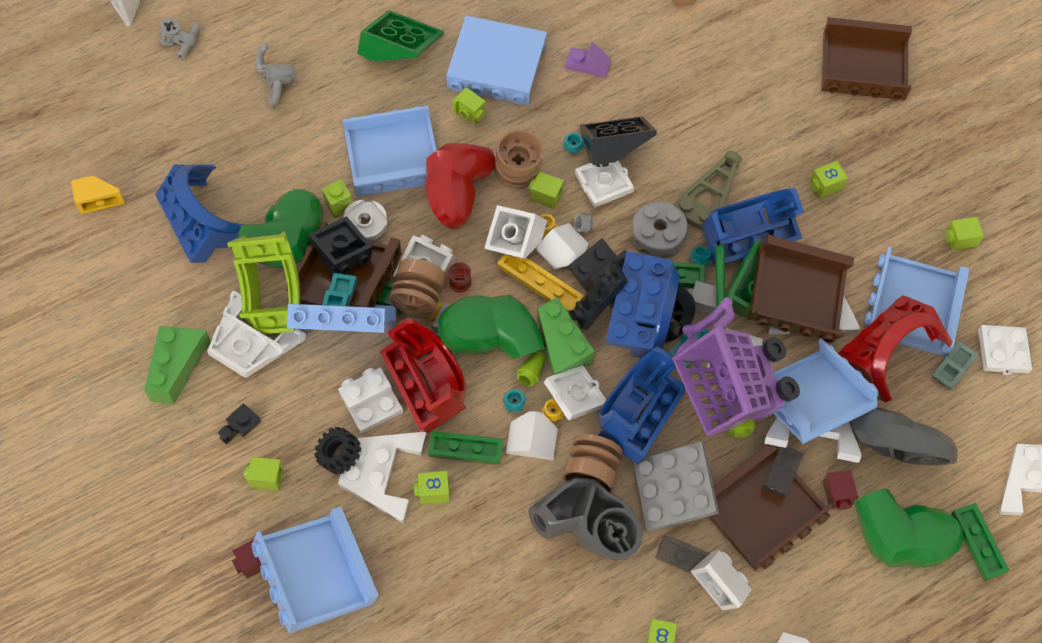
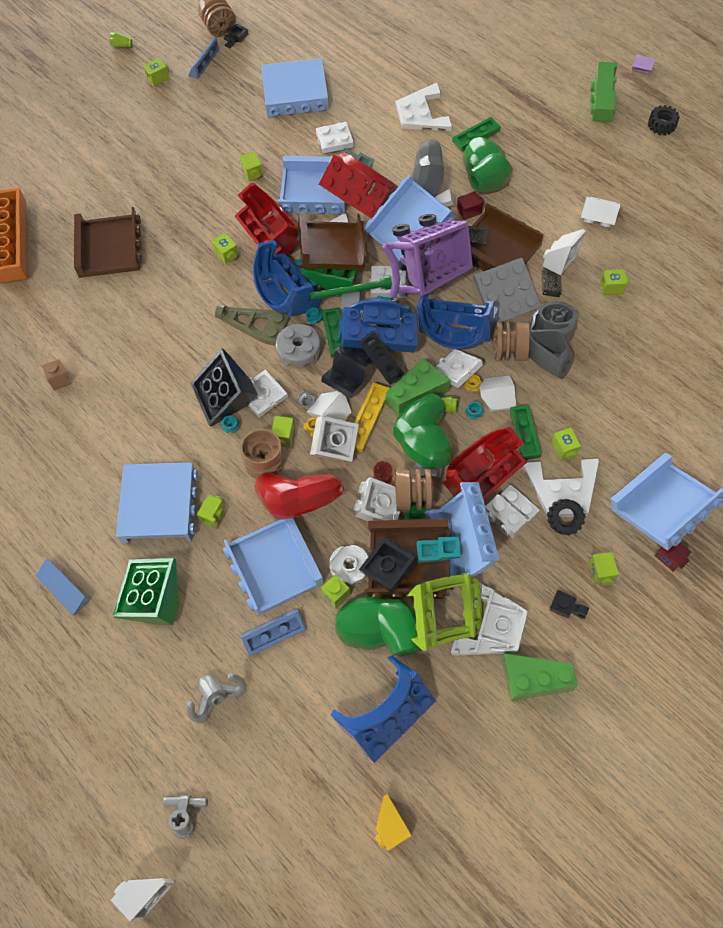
camera: 100 degrees left, 0 degrees up
(321, 139) = (273, 632): none -> medium blue slope
(591, 62) = (142, 434): medium lavender slope -> none
(866, 213) = (278, 223): none -> red piece

